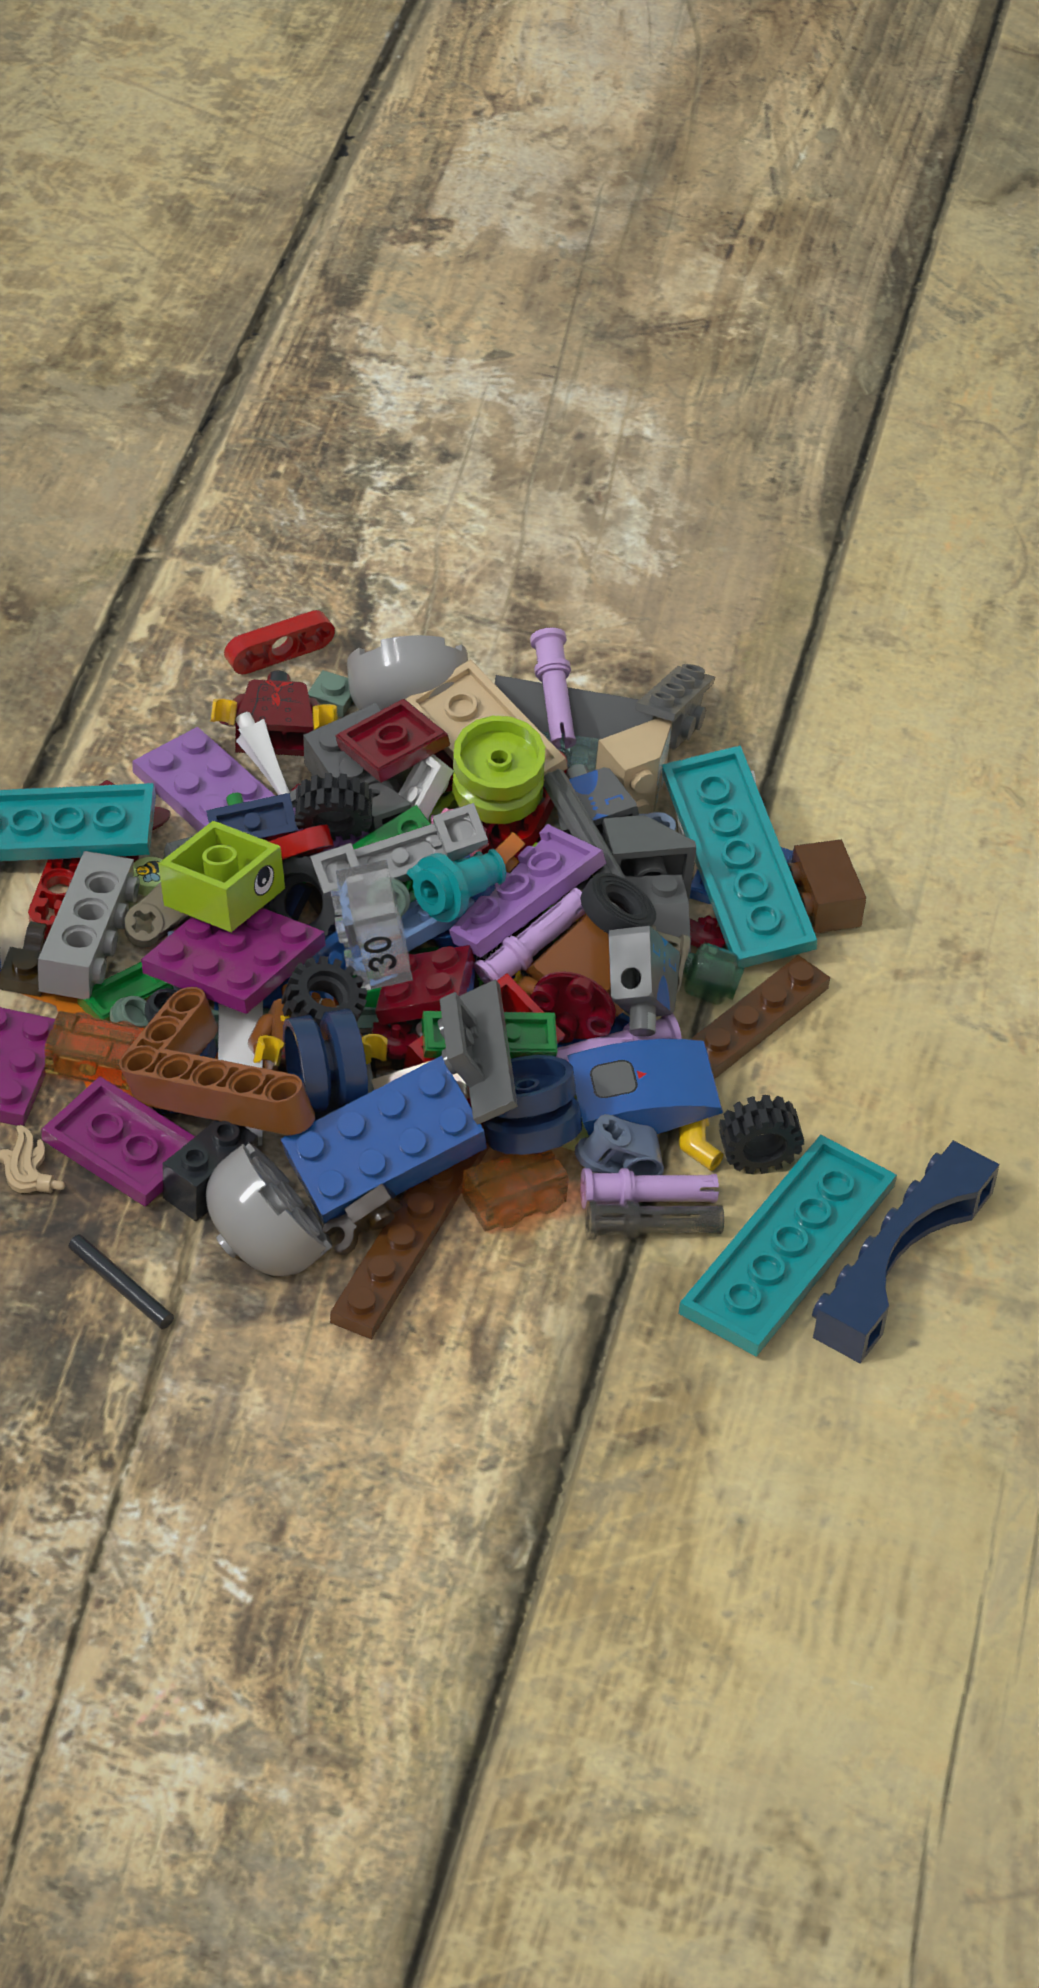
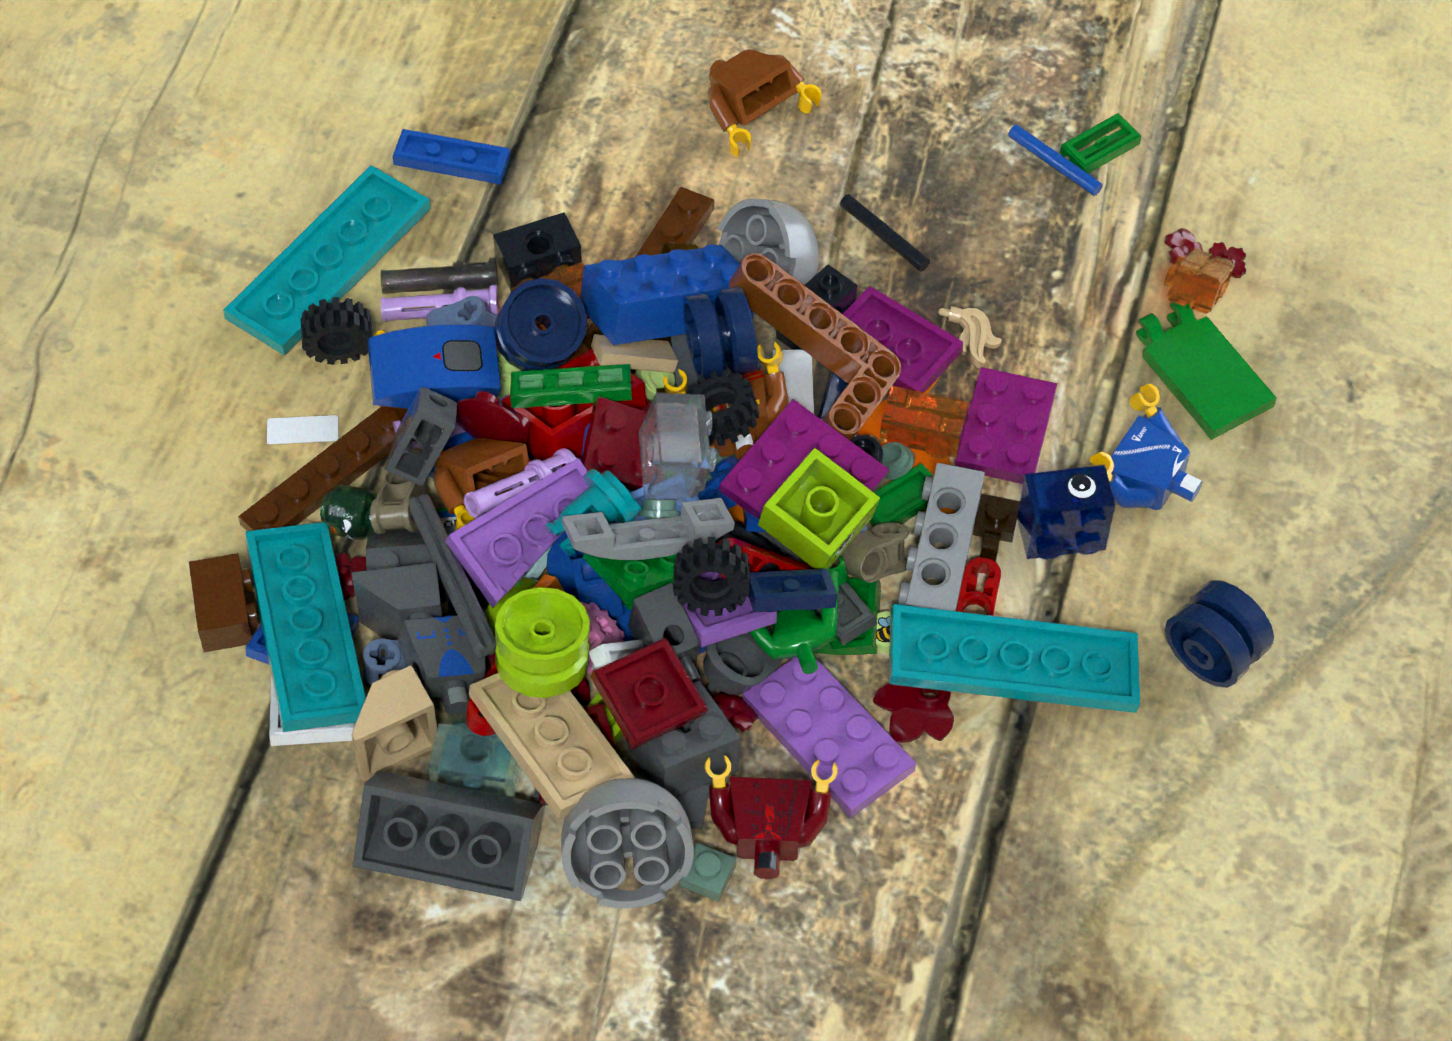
camera: 175 degrees left, 10 degrees up
(254, 649) = (766, 931): red beam -> none
(258, 746) = (786, 752): white piece -> none
(280, 1441) = (751, 86): none -> dark orange torso
(479, 1049) = (584, 320): dark grey bracket -> none
(541, 1243) = (536, 249): none -> black brick
(552, 672) = (471, 803): lavender pin -> none
(610, 888) = (423, 463): black tyre -> none
(661, 1381) = (451, 156): none -> blue tile
(679, 700) = (338, 806): dark grey bracket -> none
(782, 1077) = (302, 429): none -> white sticker
(948, 1194) = (181, 298): dark blue arch -> none

